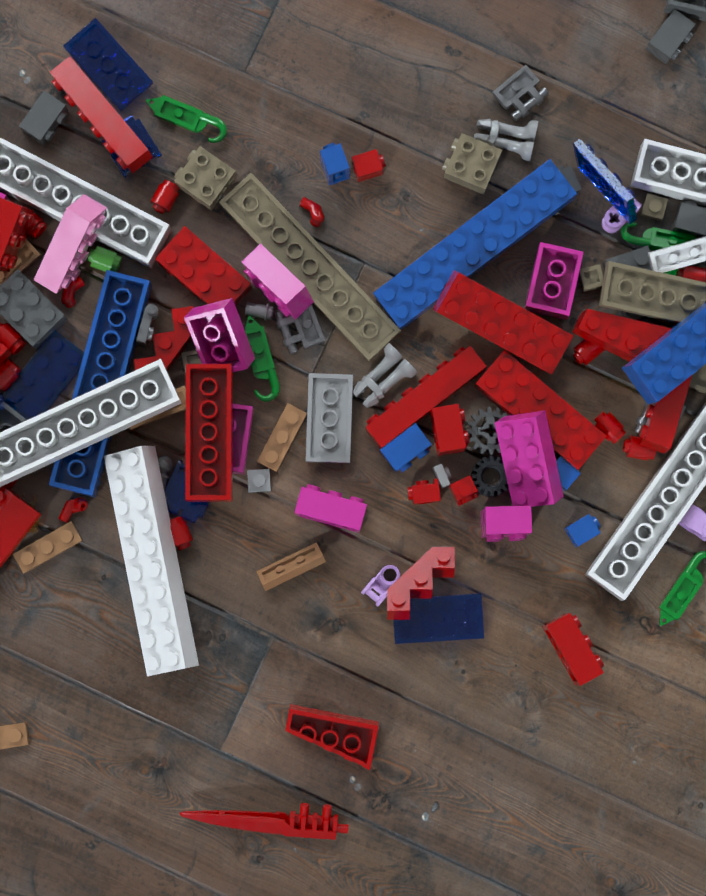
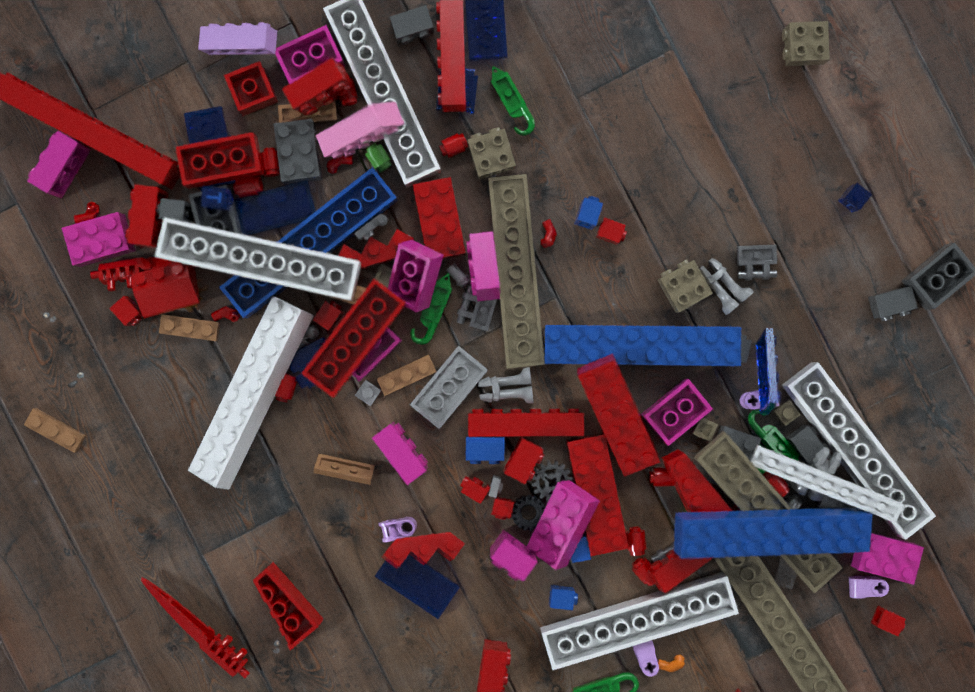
camera: 40 degrees right, 5 degrees up
(168, 436) = (328, 315): none -> red brick

